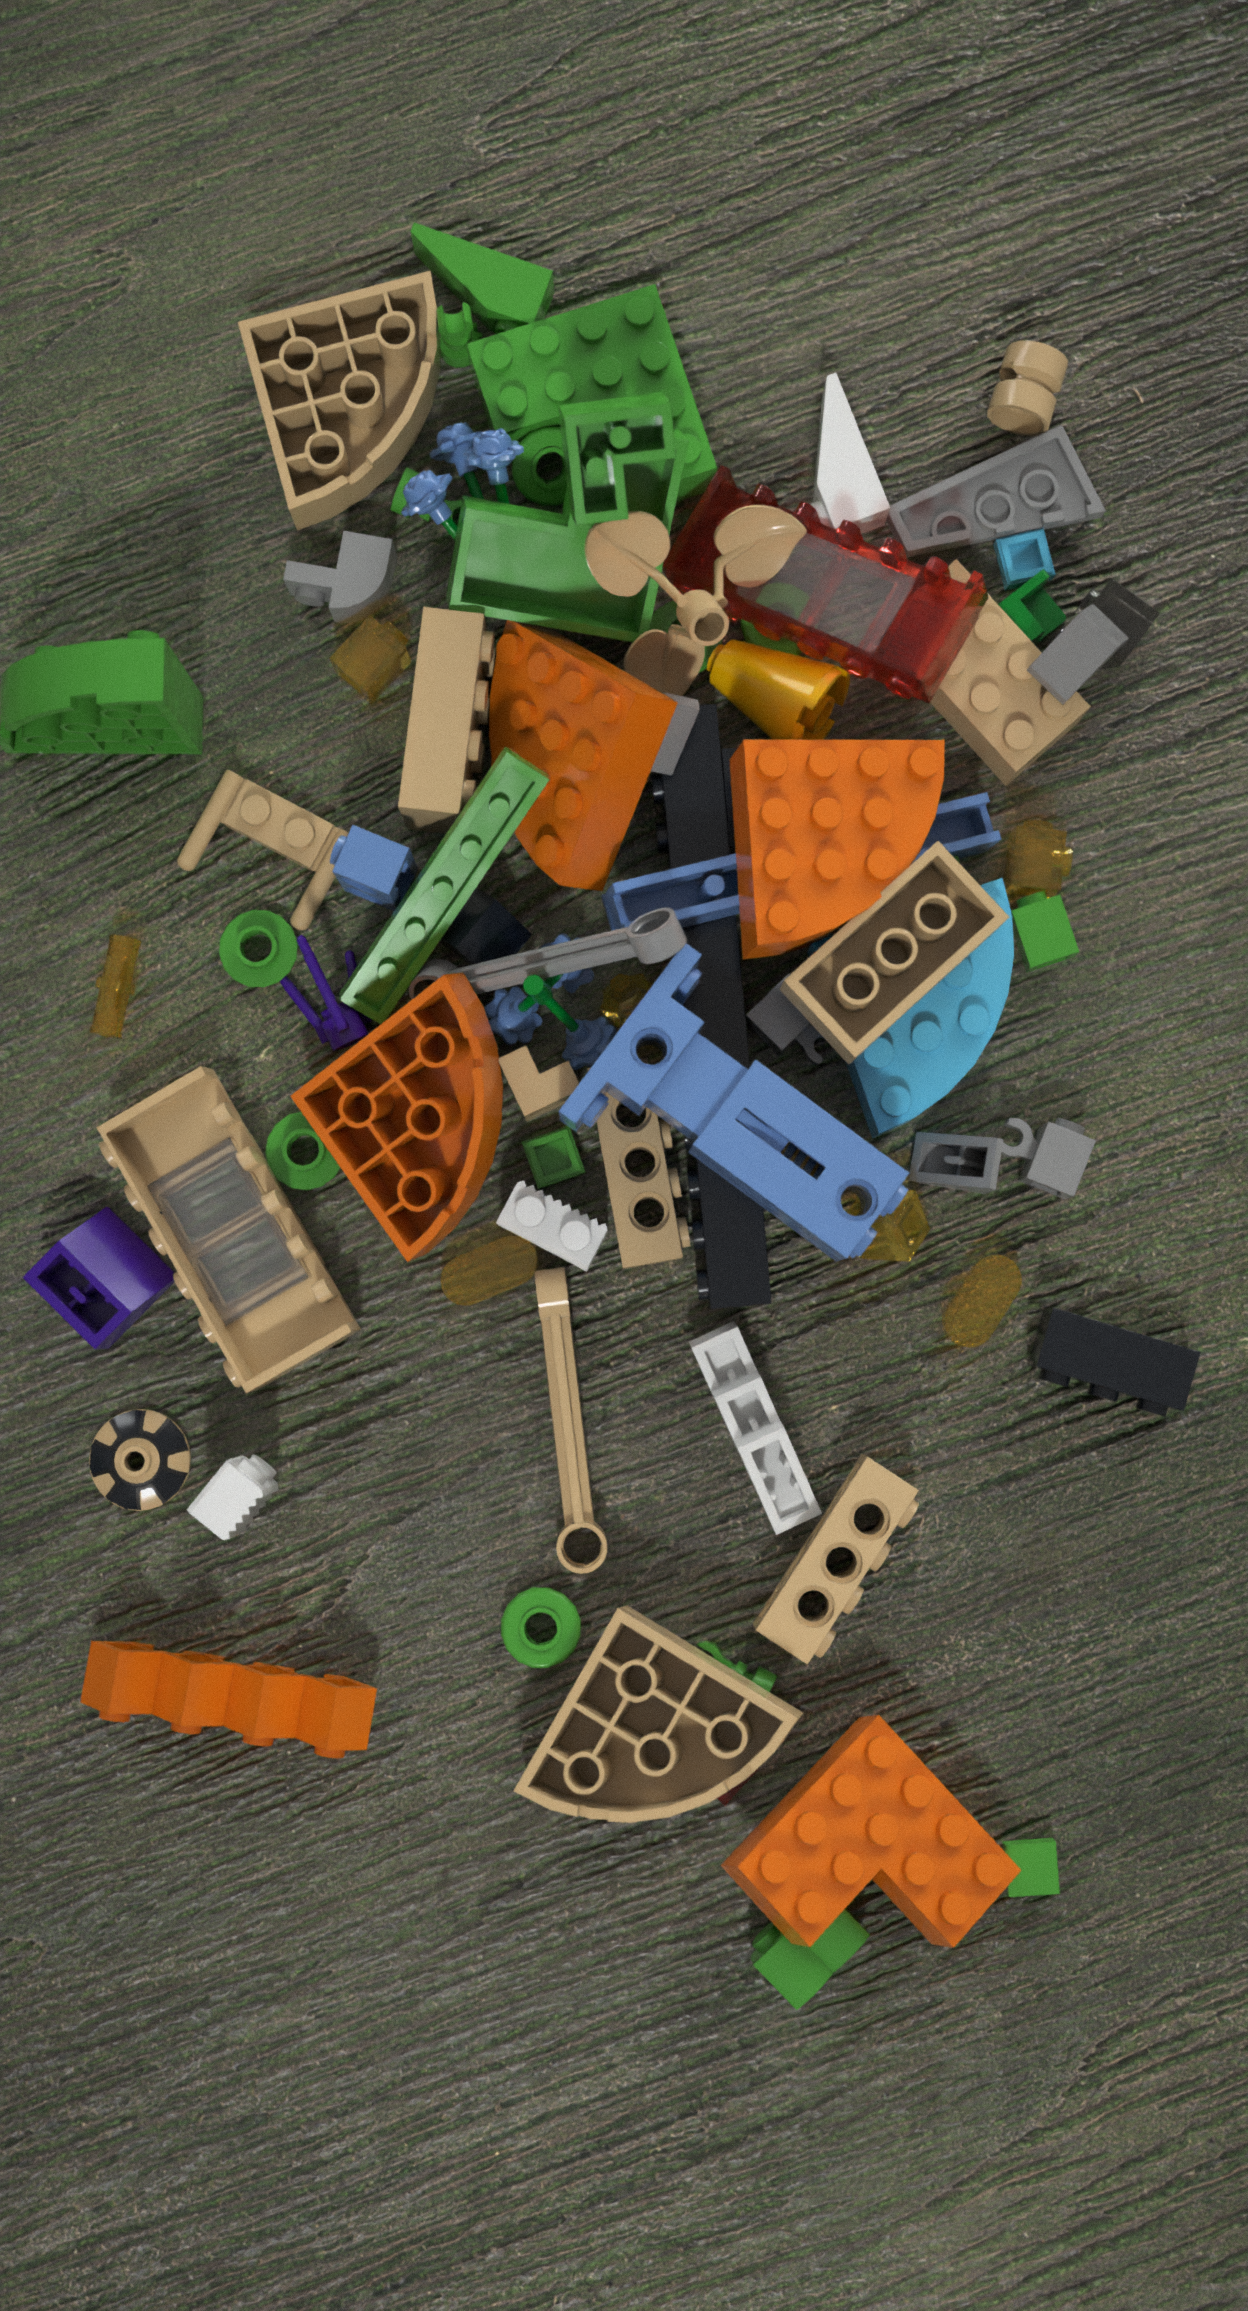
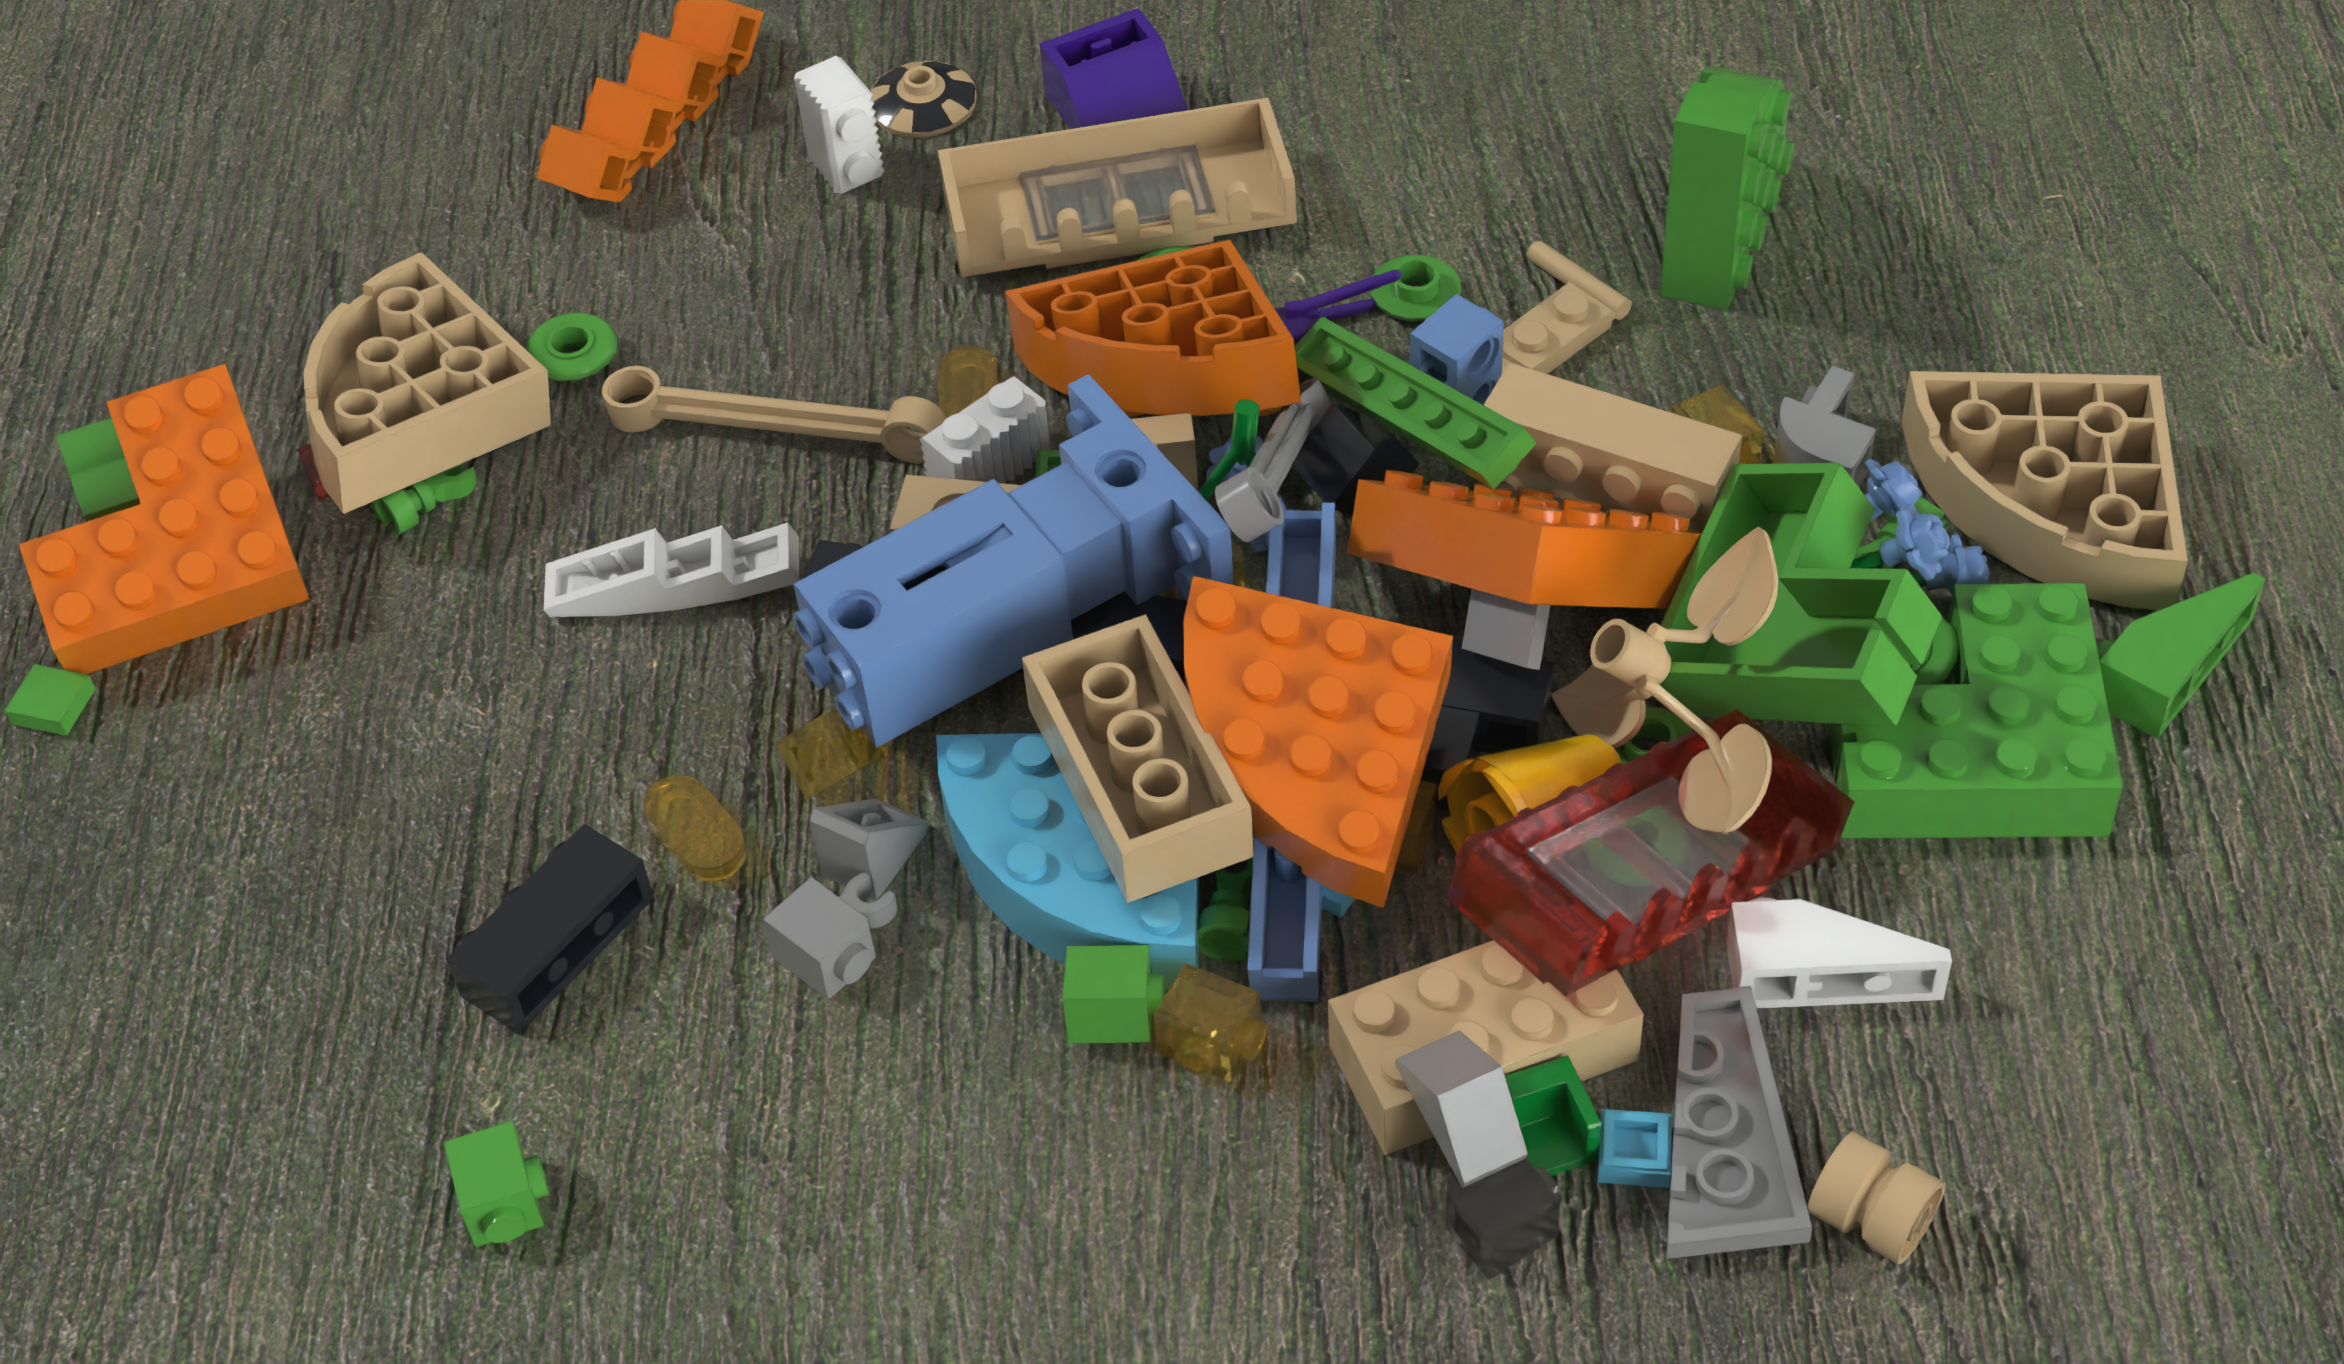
camera: 115 degrees right, 35 degrees down
(115, 986) = (1421, 167): clear yellow pin -> none
(455, 333) = (2111, 596): bright green piece -> none
(602, 439) = (1855, 557): bright green brick -> none
(813, 1635) = (488, 603): tan brick -> none

